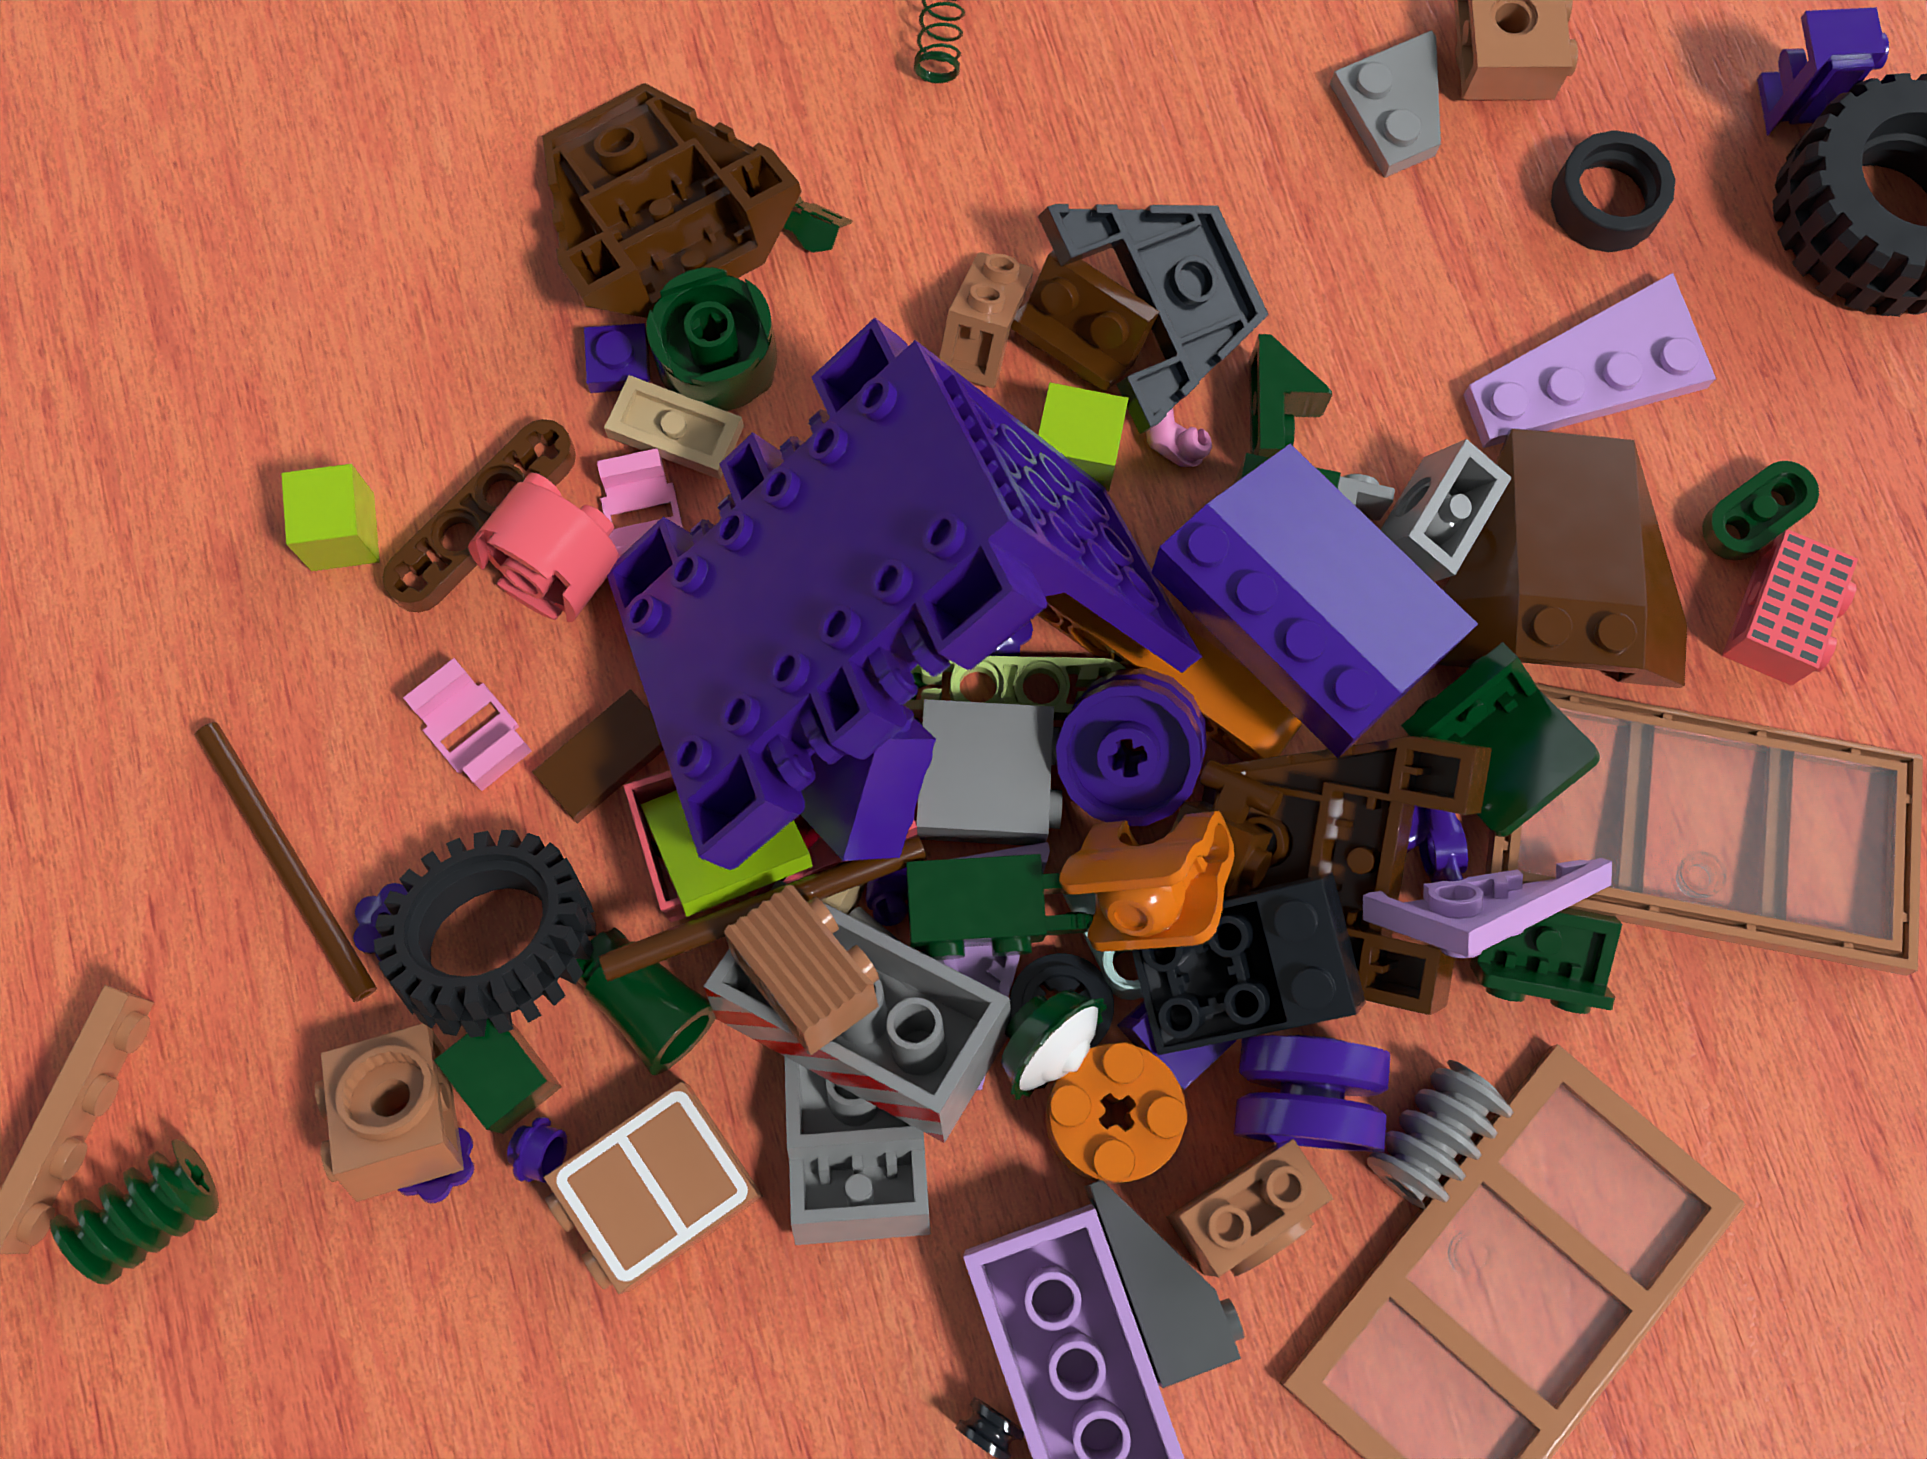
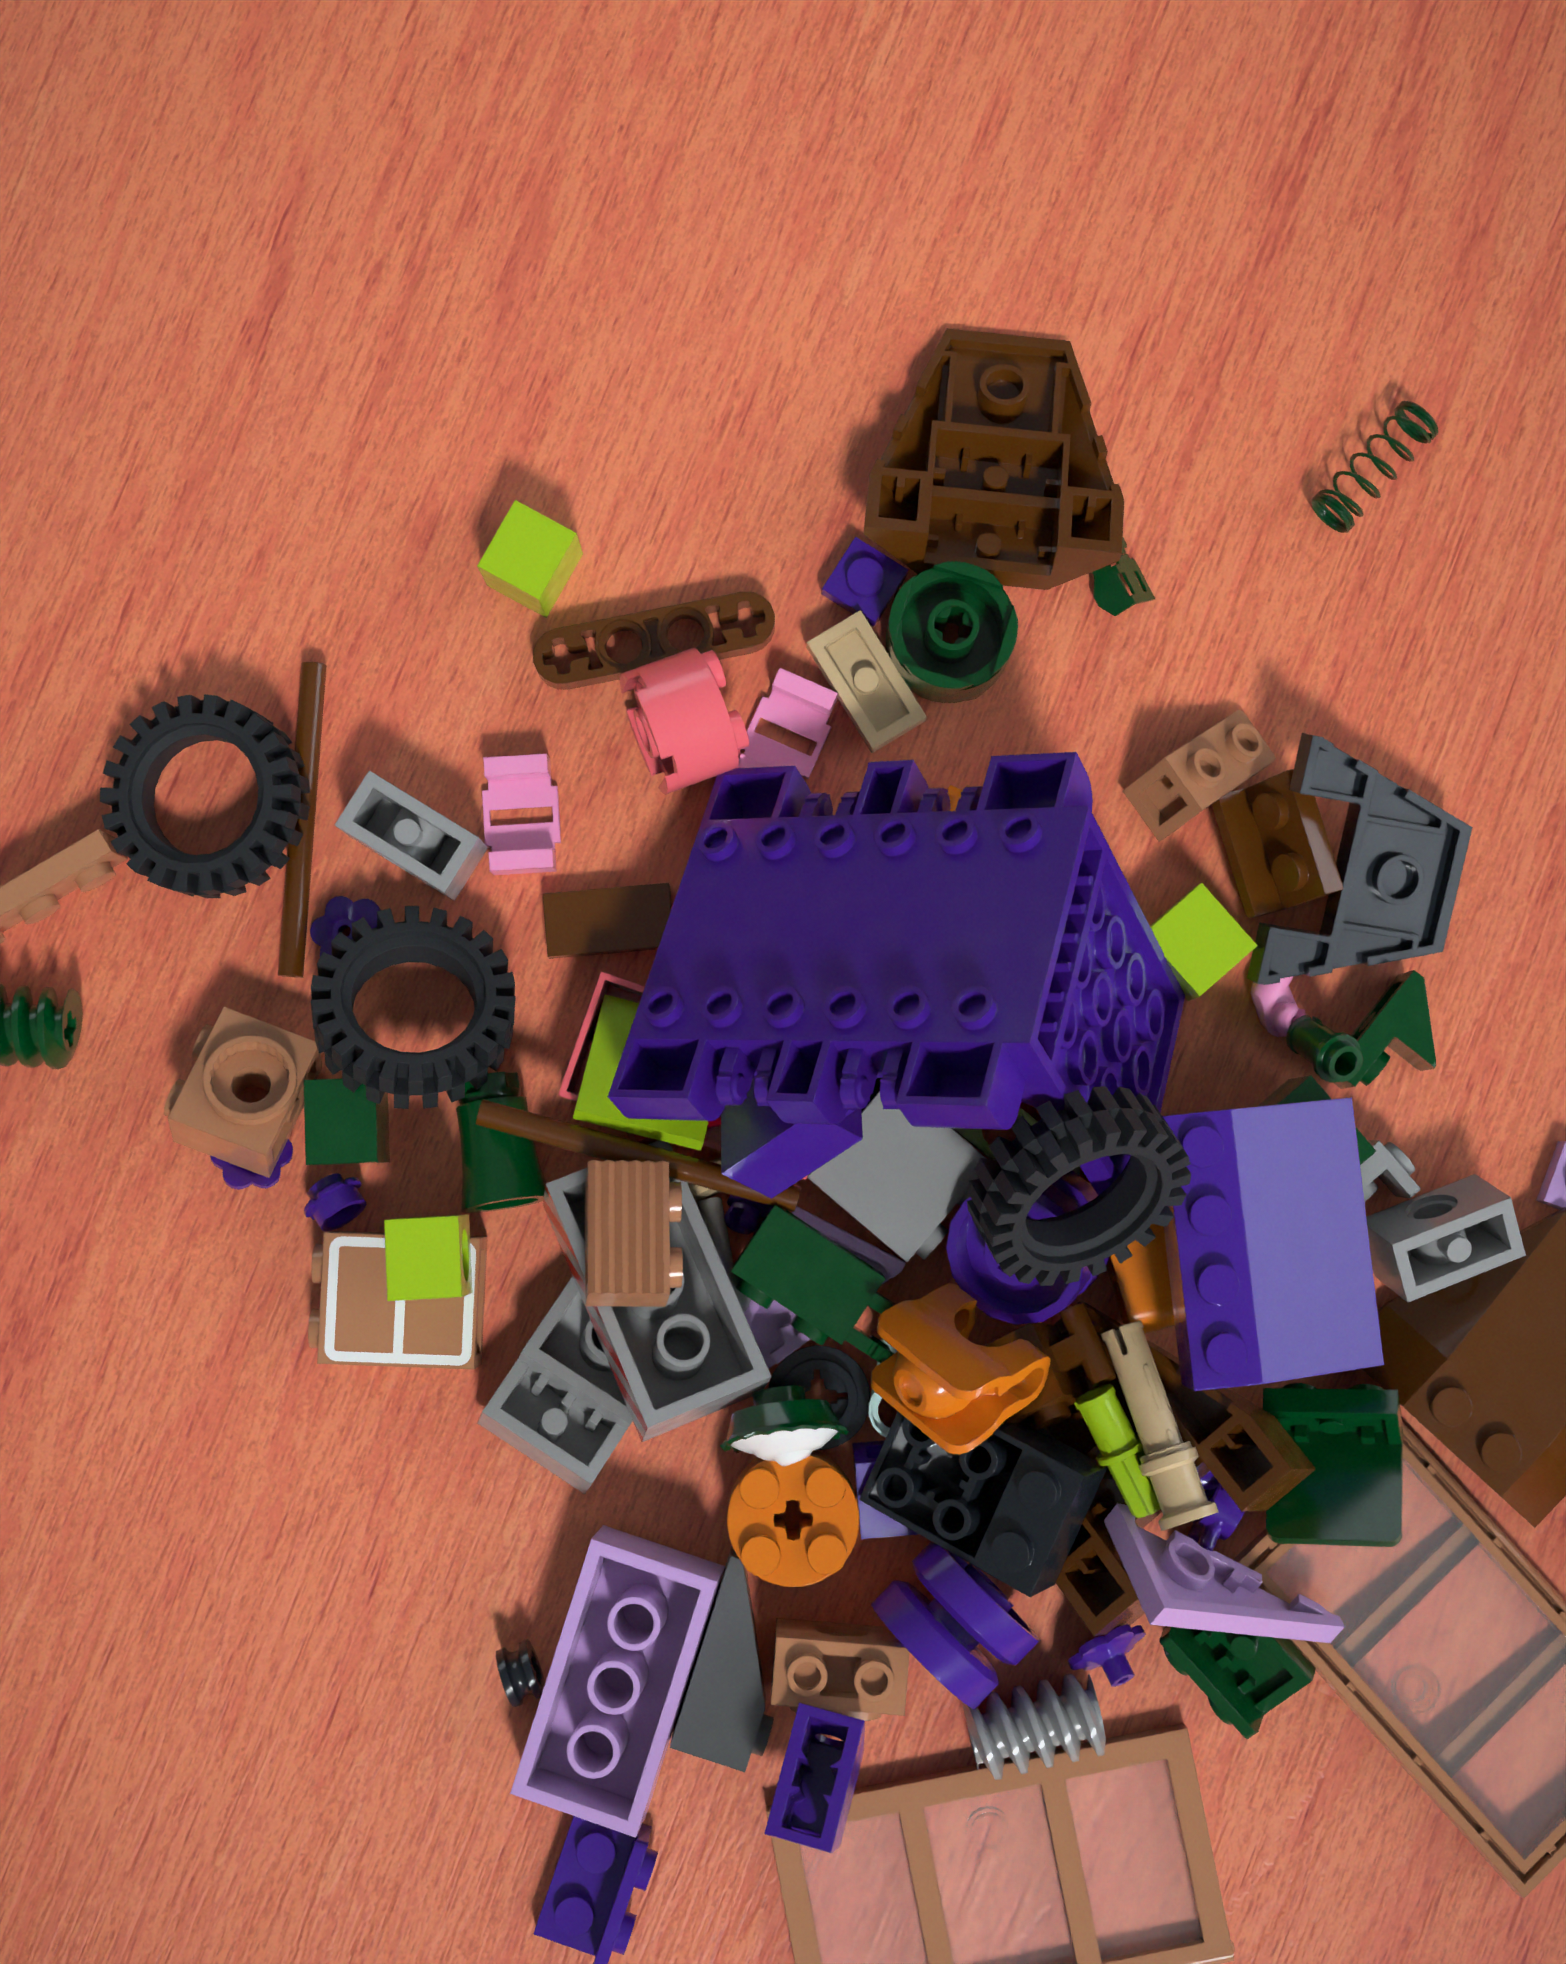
camera: 40 degrees right, 10 degrees up
(115, 875) = (140, 769): none -> black tyre
(385, 799) = (411, 835): none -> light grey brick
(646, 1121) = (428, 1257): none -> lime piece
(1089, 624) = (1058, 1145): none -> black tyre
(1250, 433) = (1333, 1054): none -> dark green pin
(1304, 1304) = (817, 1779): none -> dark purple torso
(1333, 849) = (1118, 1448): none -> lime axle
(1373, 821) = (1167, 1458): none -> tan pin
(1451, 1029) = (1109, 1653): none -> dark purple plant

